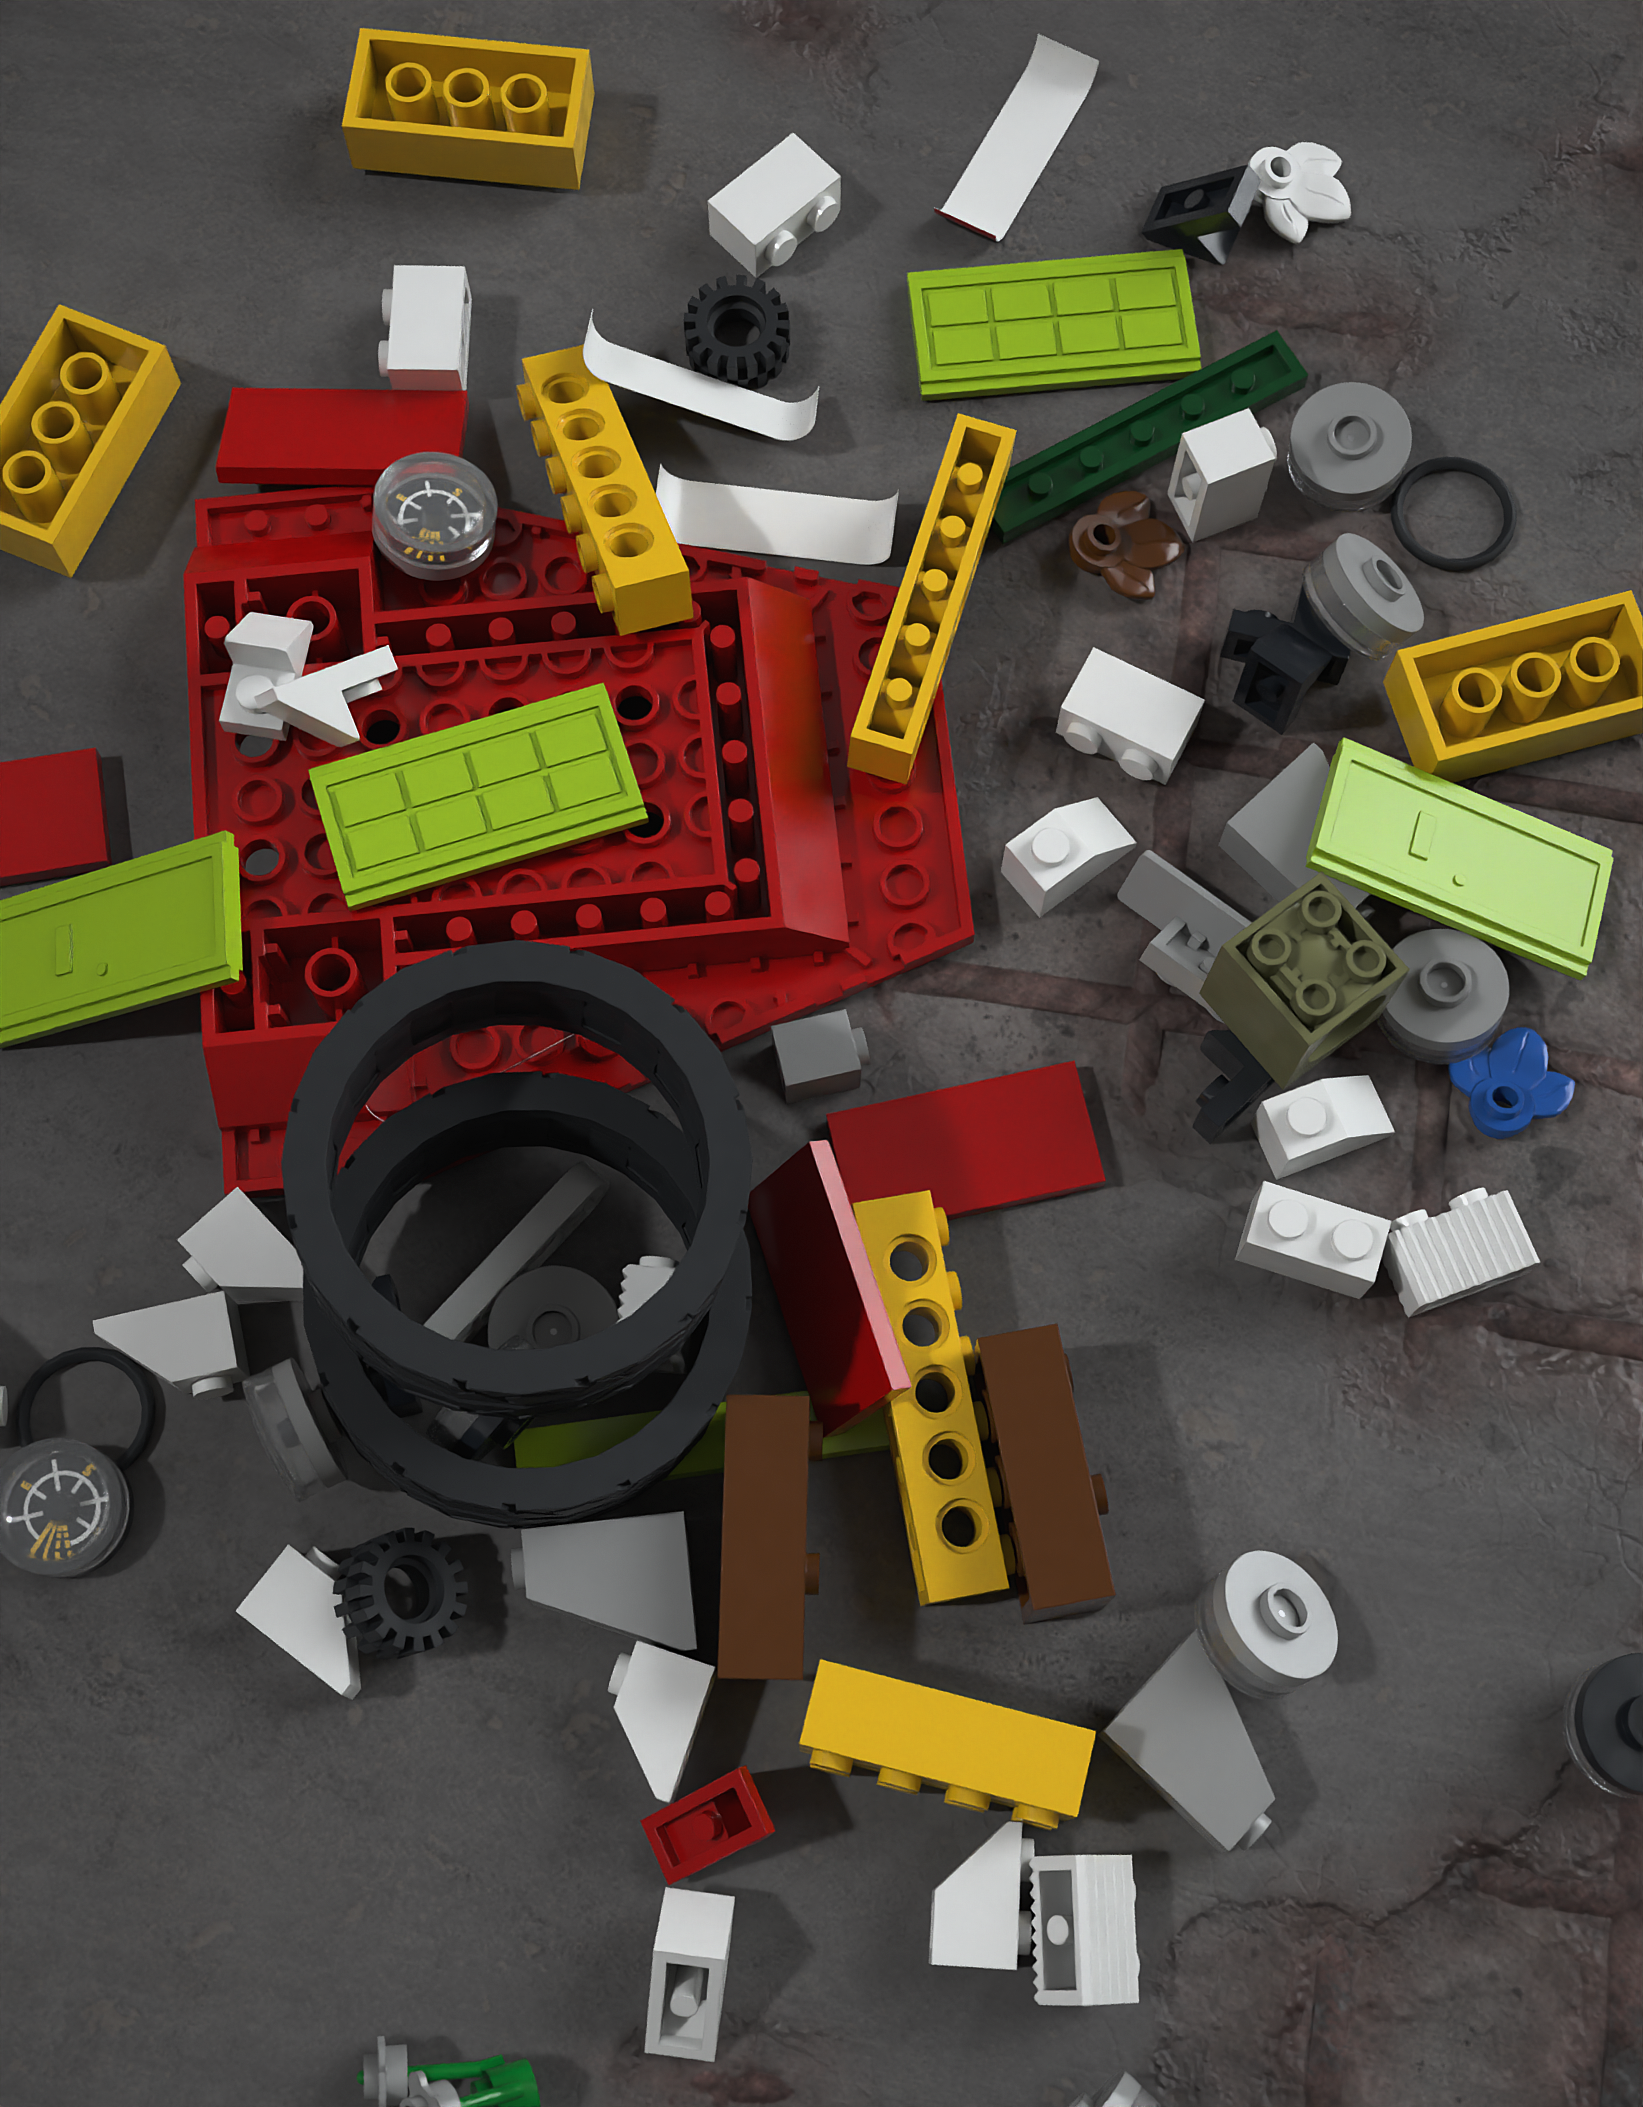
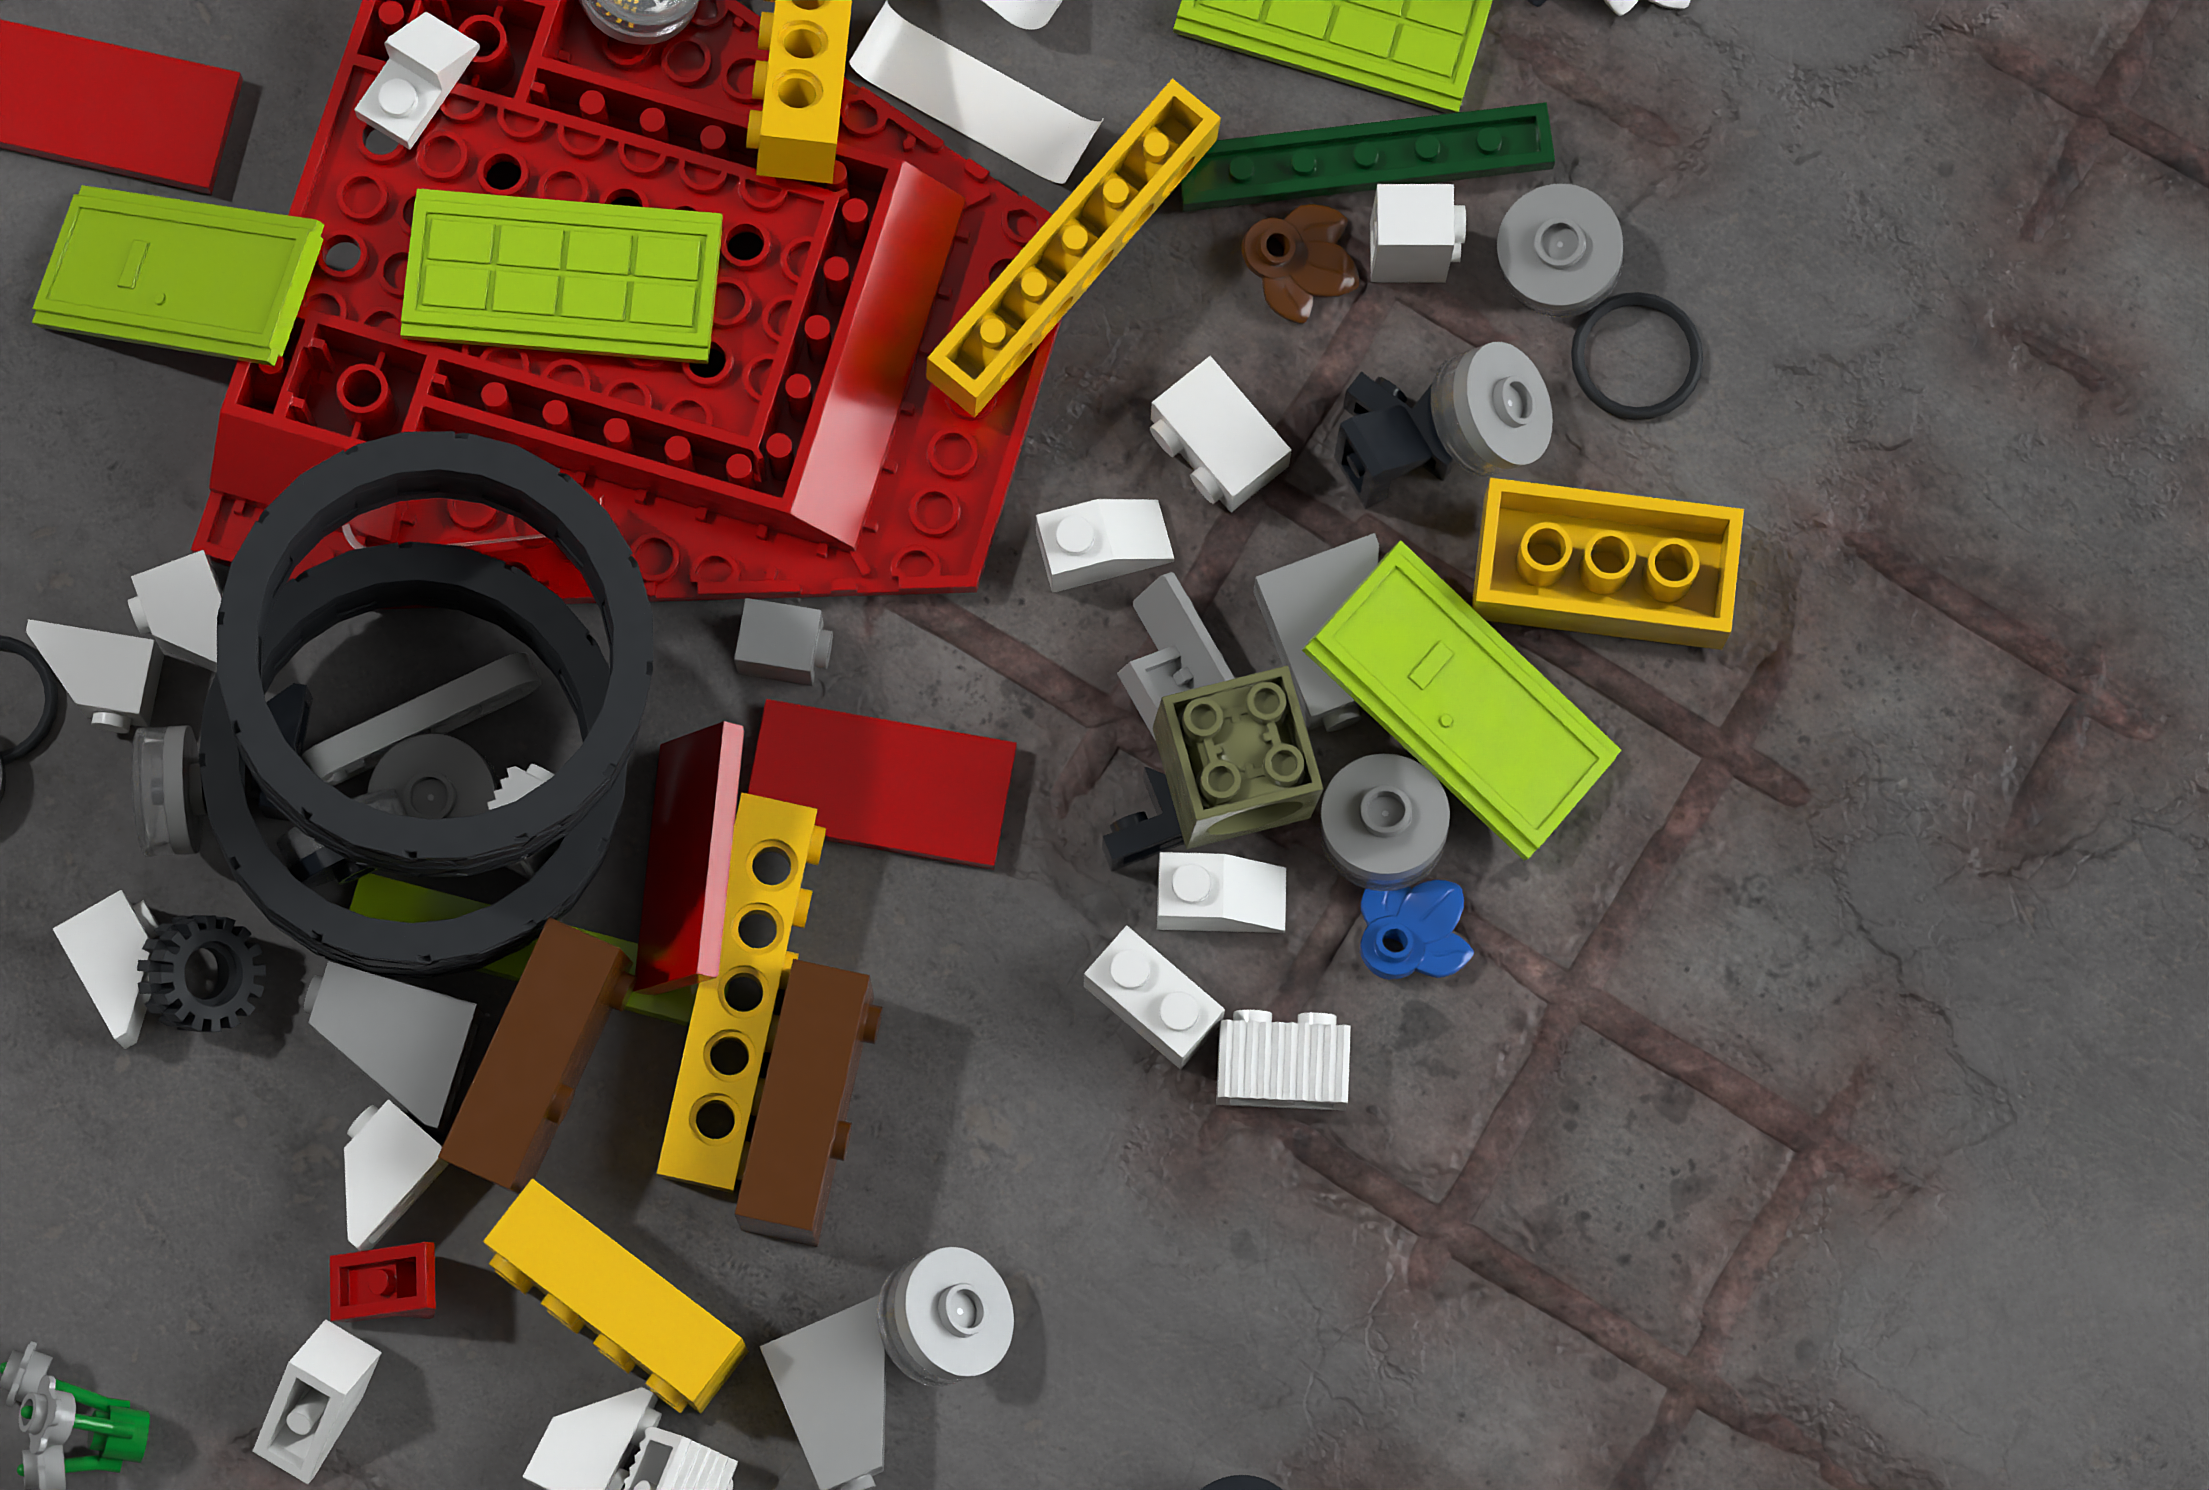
camera: 20 degrees right, 5 degrees up
(320, 699) = (448, 126): white slope -> none

